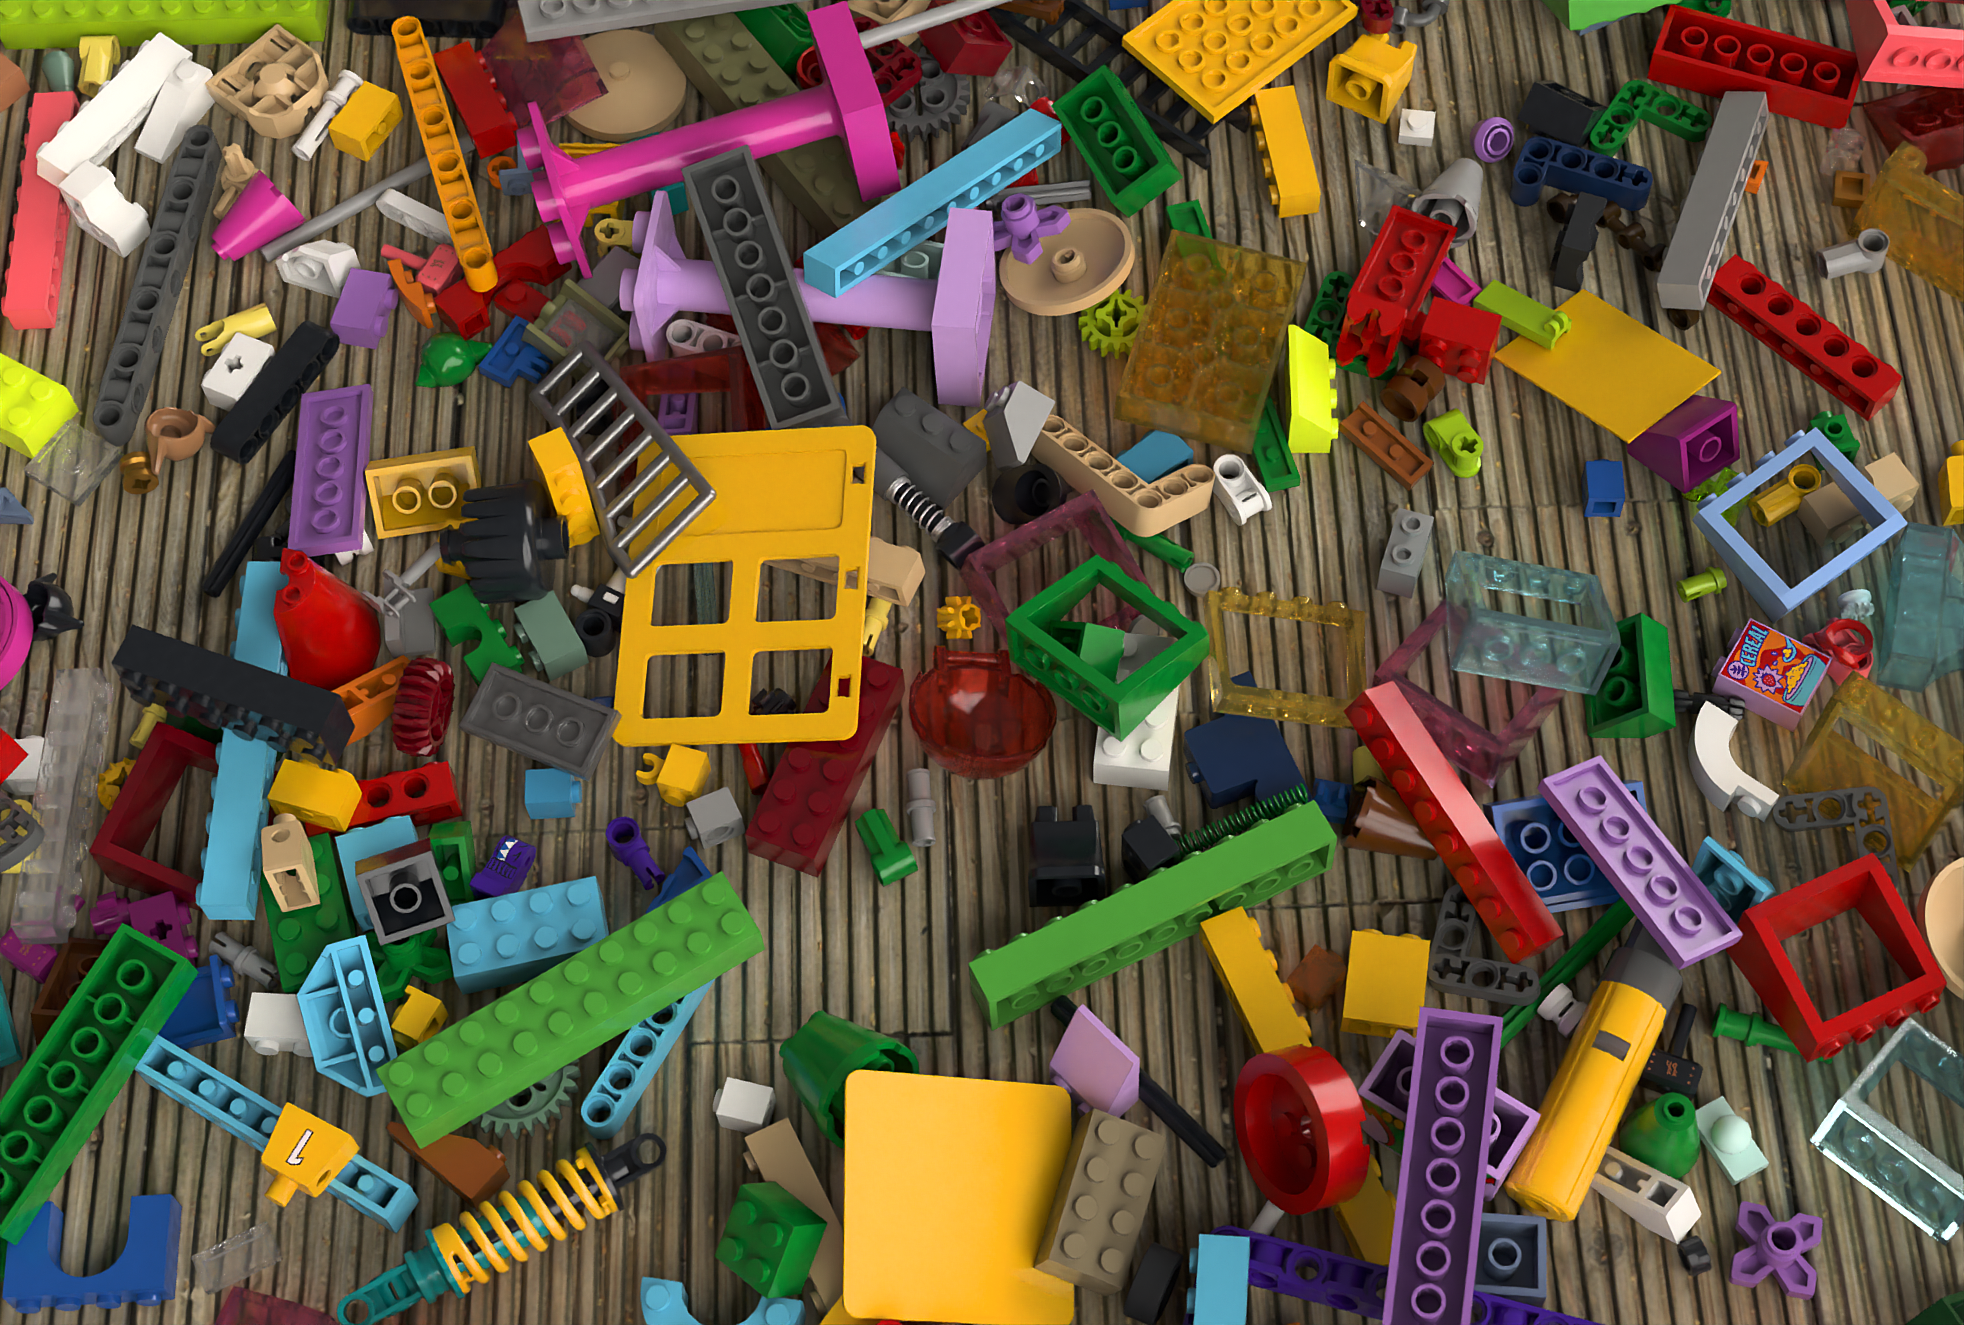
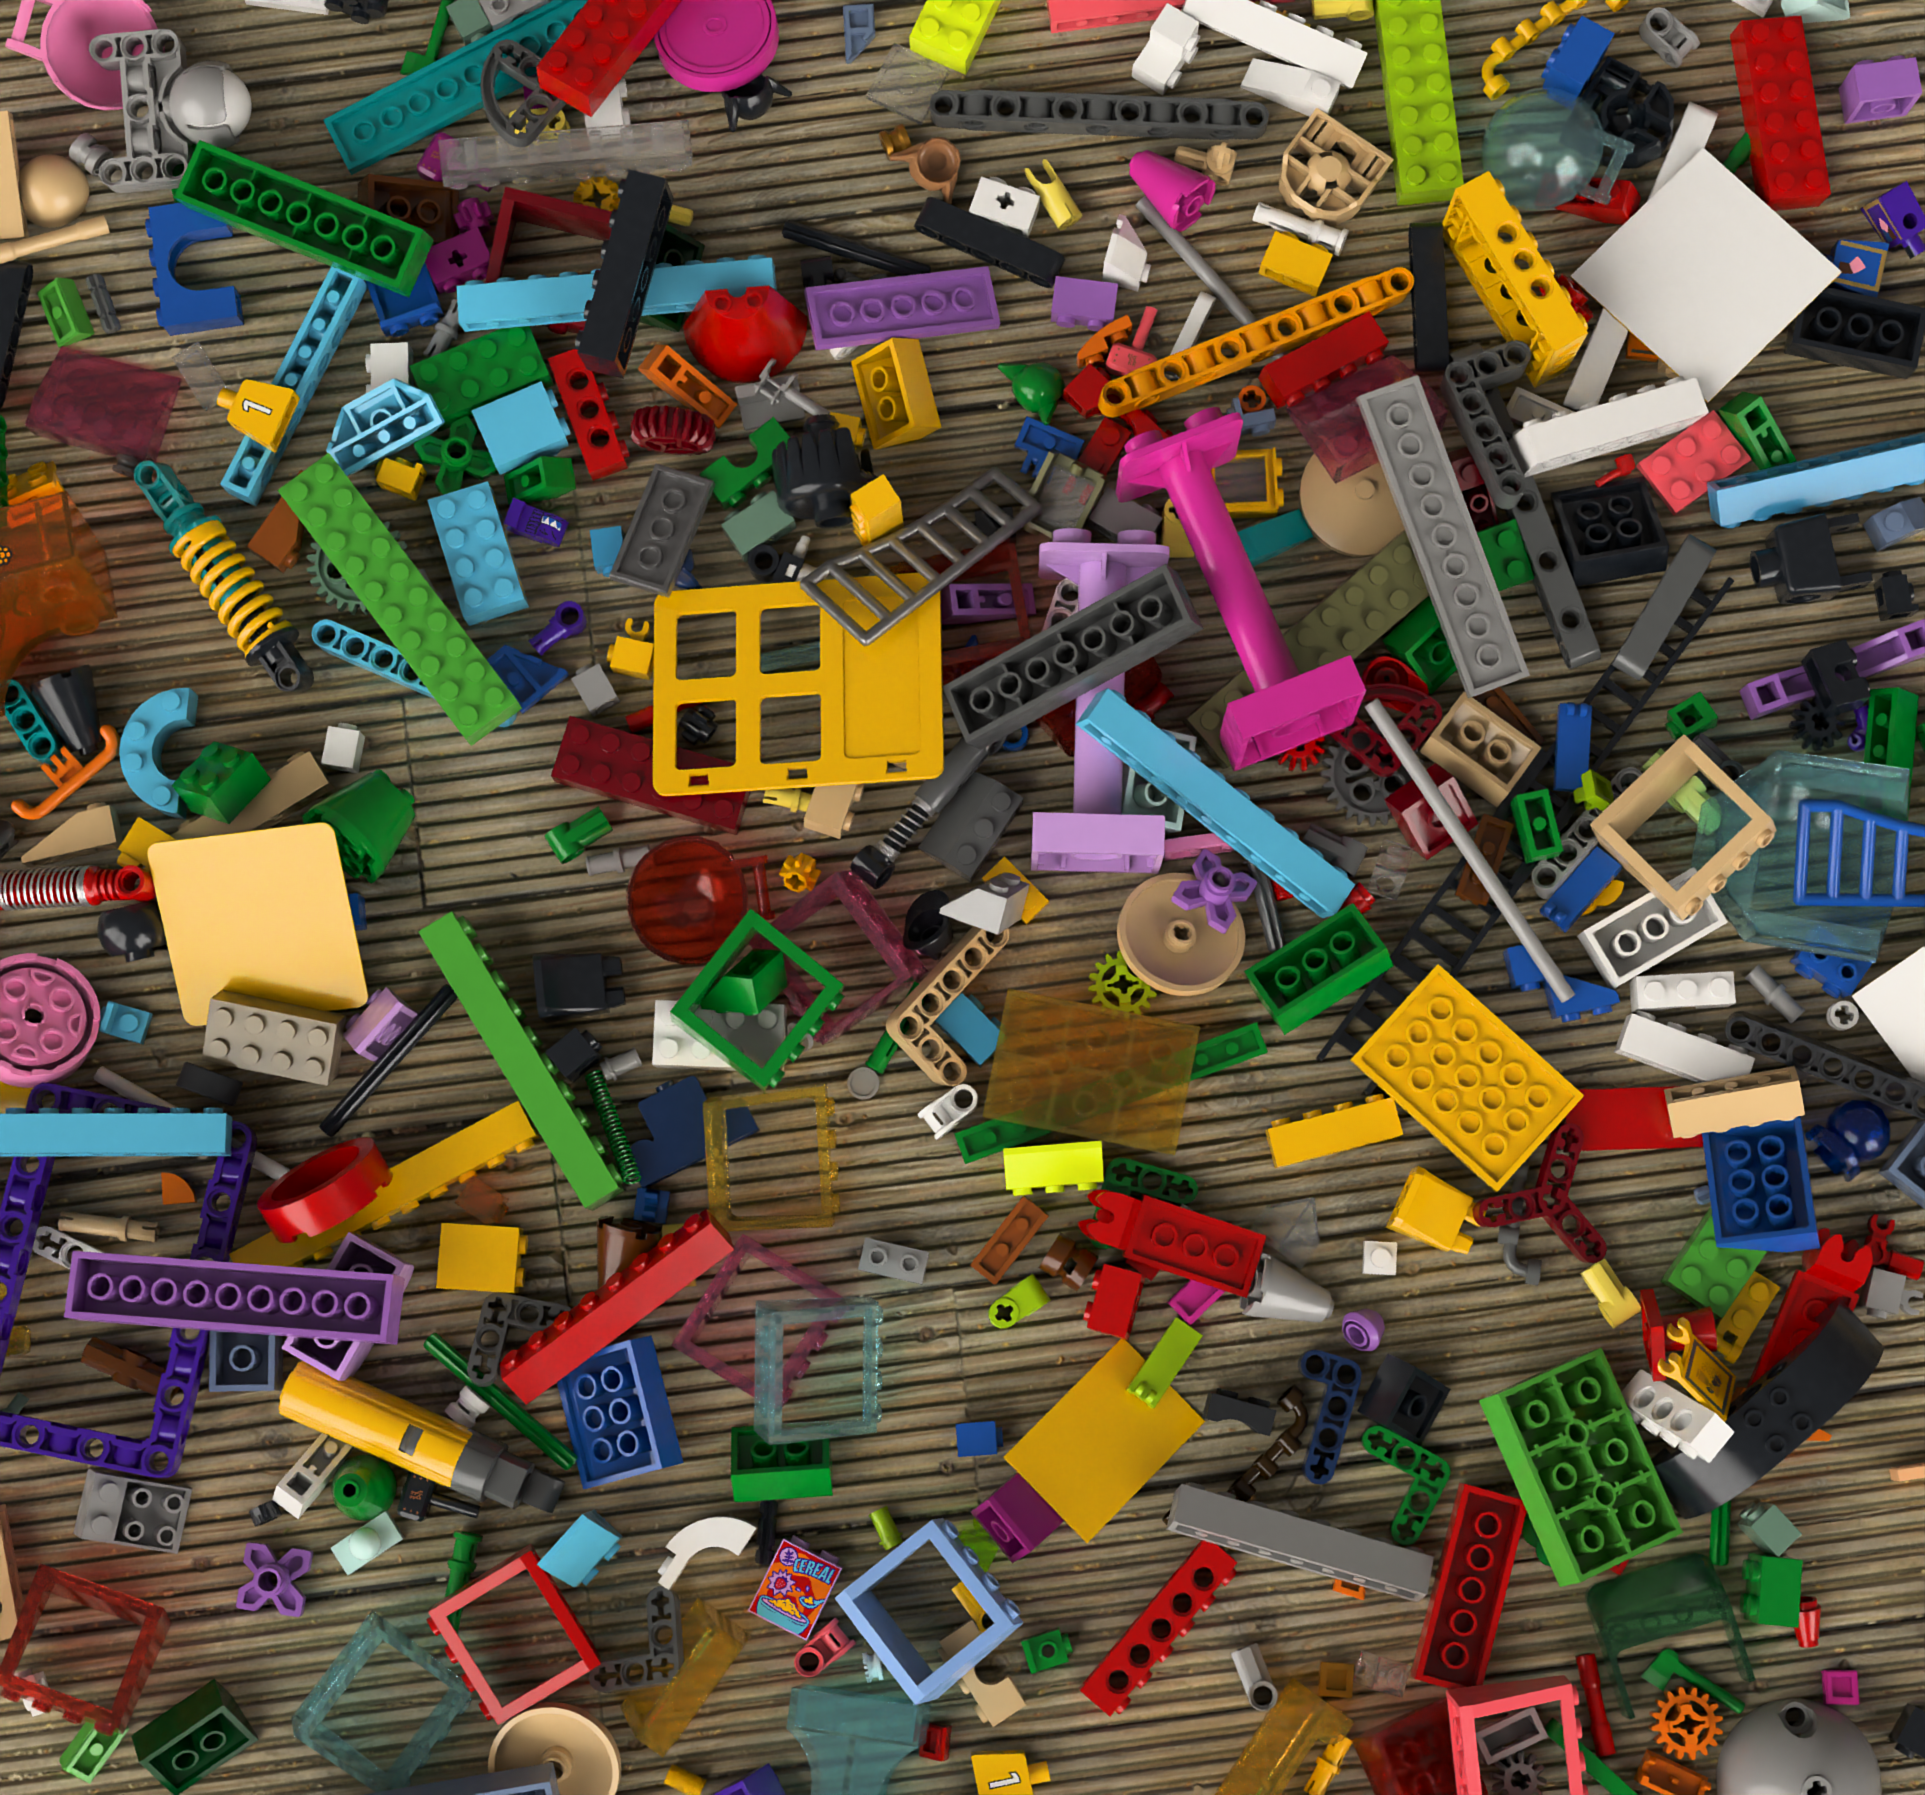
camera: 85 degrees right, 20 degrees up
(285, 849) = (503, 348): tan torso -> none
(315, 794) = (567, 369): yellow brick -> none
(404, 891) = (488, 446): slope -> none
(1640, 862) = (573, 1462): medium lavender plate -> none
(1847, 658) = (804, 1656): red piece -> none

